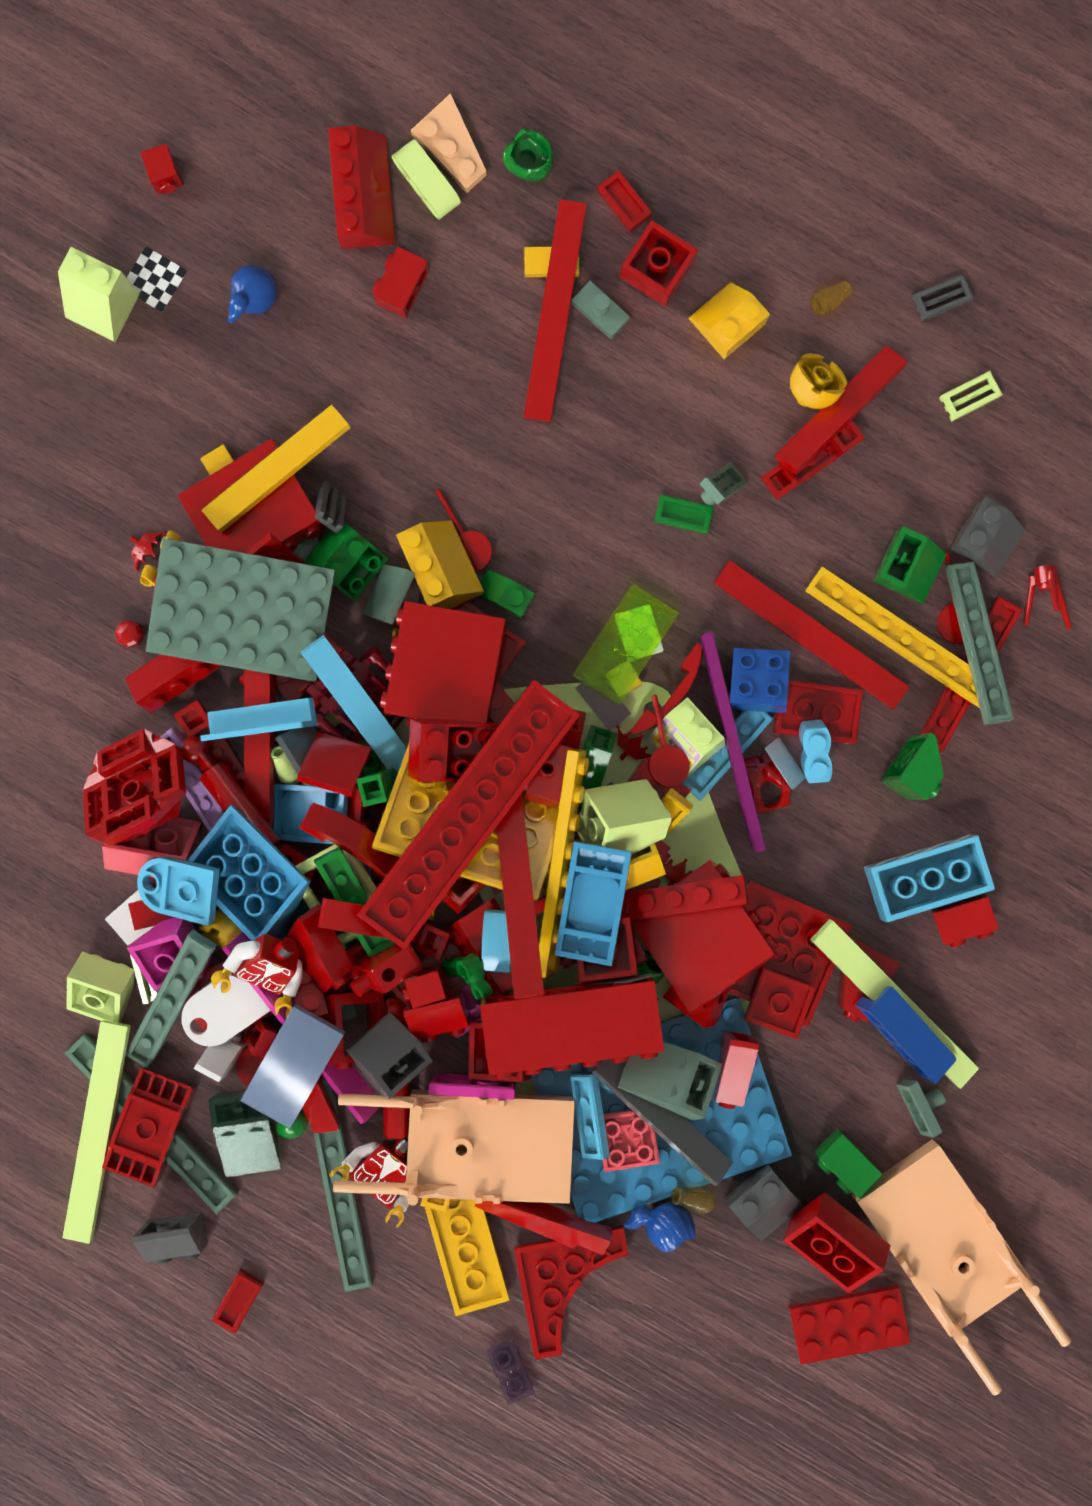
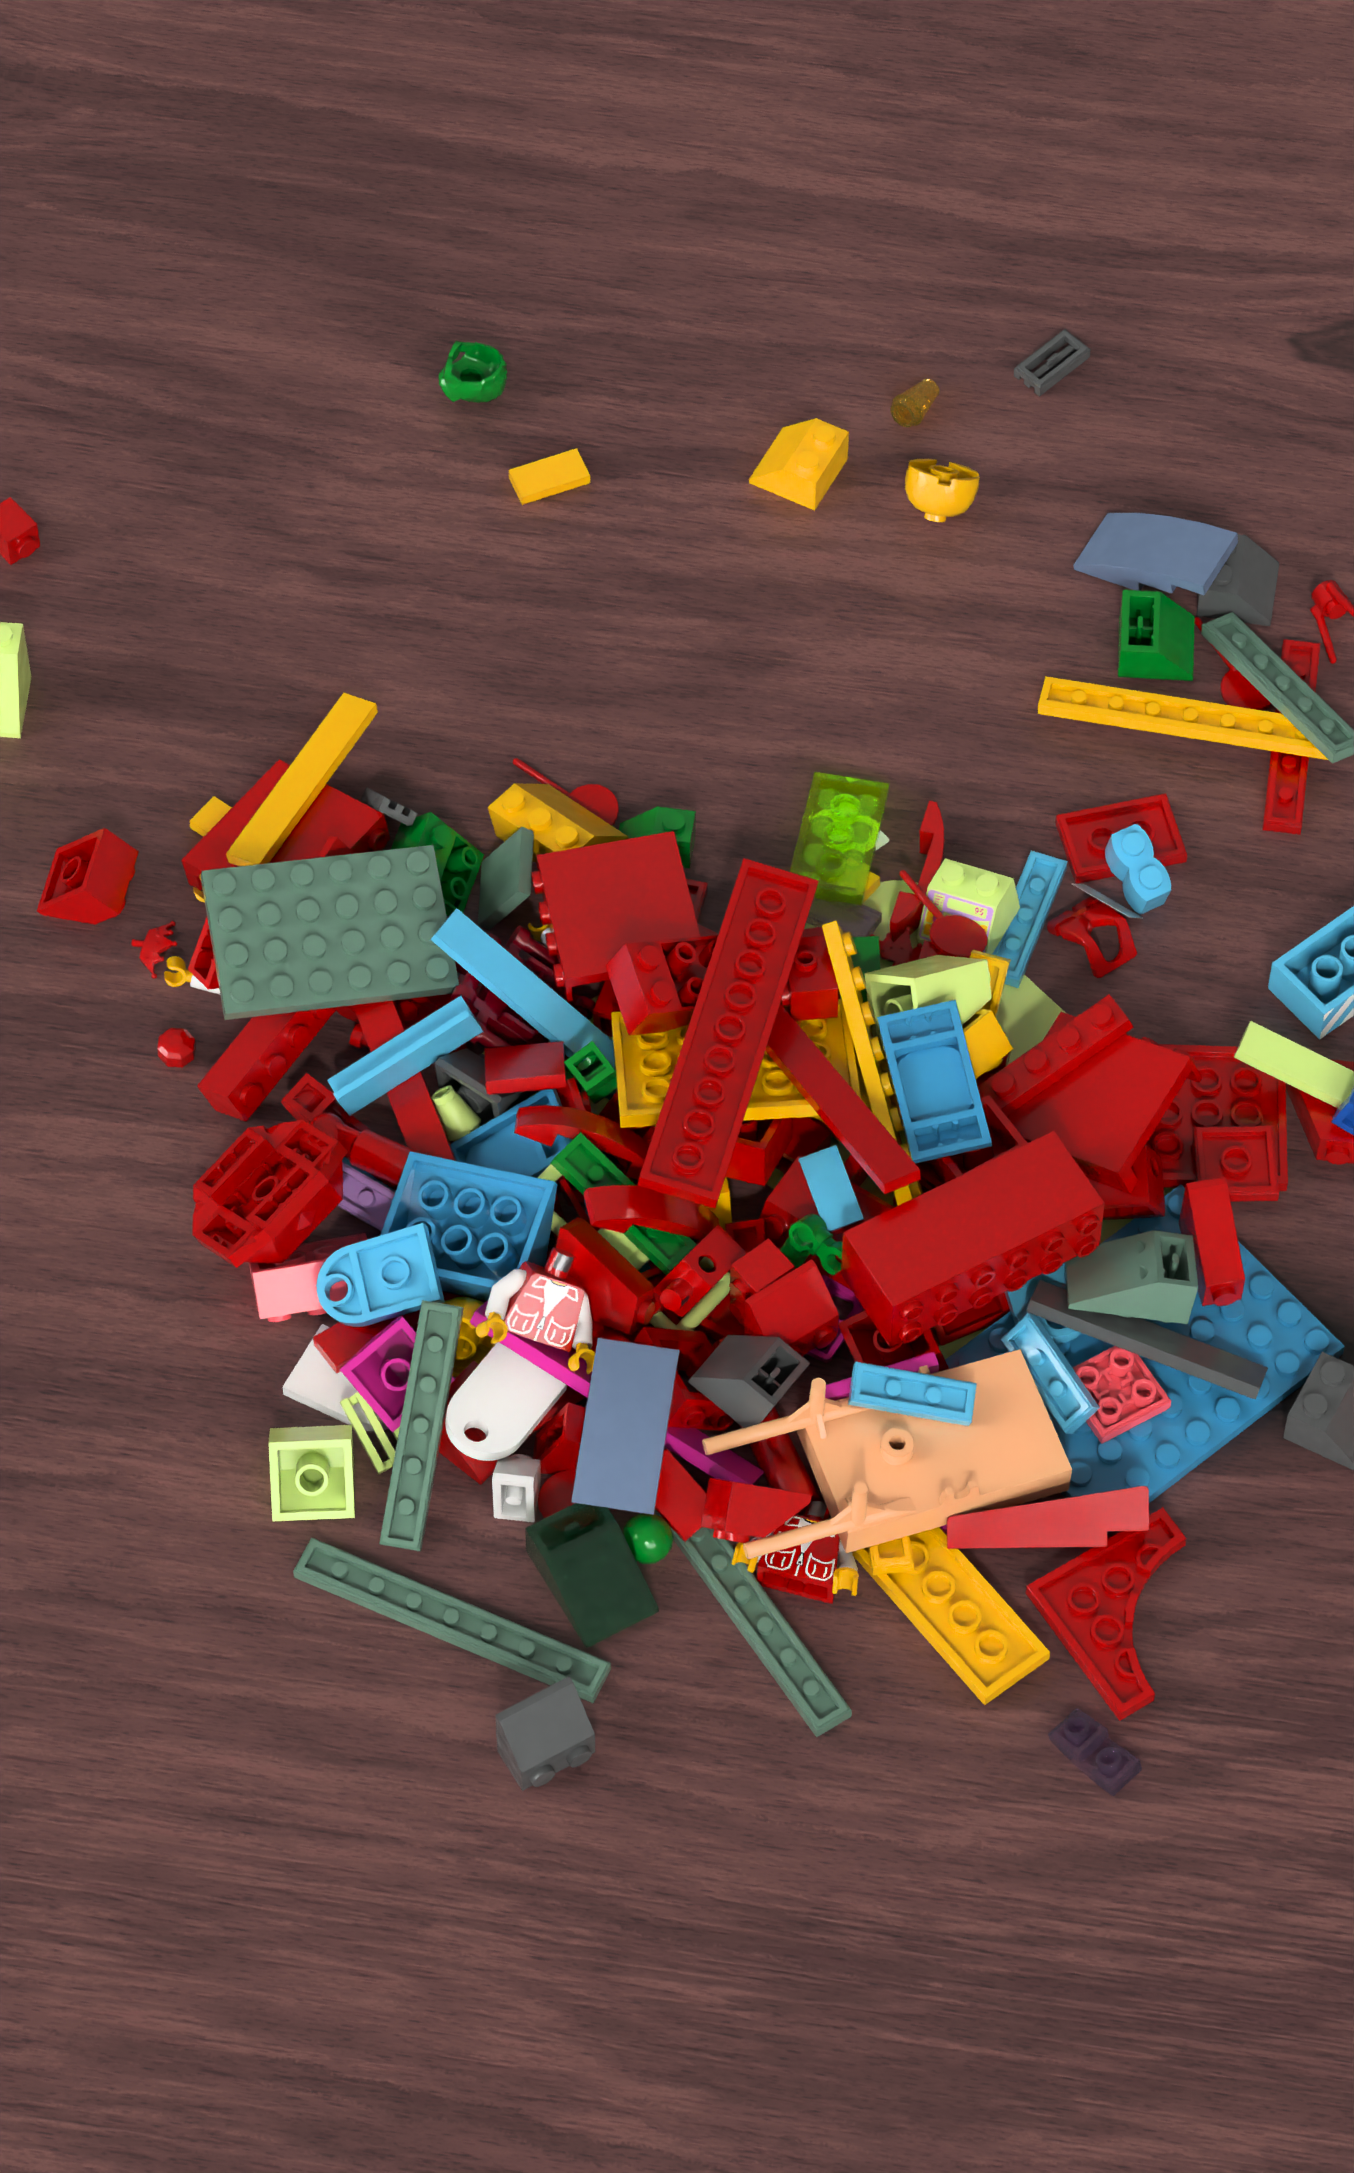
camera: 25 degrees left, 30 degrees down
(96, 1131) = (381, 1649): yellowish green tile -> none
(115, 481) = (89, 879): none -> red slope
(147, 1127) = (452, 1612): red plate -> none
(155, 278) = (52, 654): sticker -> none
(237, 1301) = (671, 1803): red tile -> none
(251, 292) = (184, 618): blue hair -> none
(353, 1152) = (748, 1510): none -> red slope
(361, 187) = (272, 473): red slope -> none
(400, 282) = (369, 552): red brick -> none
(426, 179) = (353, 439): yellowish green beam -> none
(449, 143) = (366, 397): light nougat wing -> none
(484, 1120) = (912, 1393): none -> medium azure tile
(555, 311) = (579, 524): red tile -> none
(600, 310) = (634, 504): sand green tile -> none
(624, 201) = (611, 388): red tile -> none
(658, 263) = (685, 429): red brick -> none
(665, 1225) = (1211, 1479): blue hair -> none
(683, 514) = (843, 684): green tile -> none
(696, 1199) = (1242, 1437): clear yellow cone -> none
(722, 484) = (875, 628): sand green tile -> none
(732, 742) = (1031, 896): magenta tile -> none
(760, 680) = (1029, 816): blue brick -> none
(782, 480) = (979, 570): red slope -> none
(811, 635) = (1069, 758): red tile -> none
(834, 418) = (979, 519): red tile -> none
(916, 769) = (1273, 838): green slope -> none
(942, 497) = (1156, 552): none -> sand blue slope
(950, 406) = (1122, 467): yellowish green tile -> none

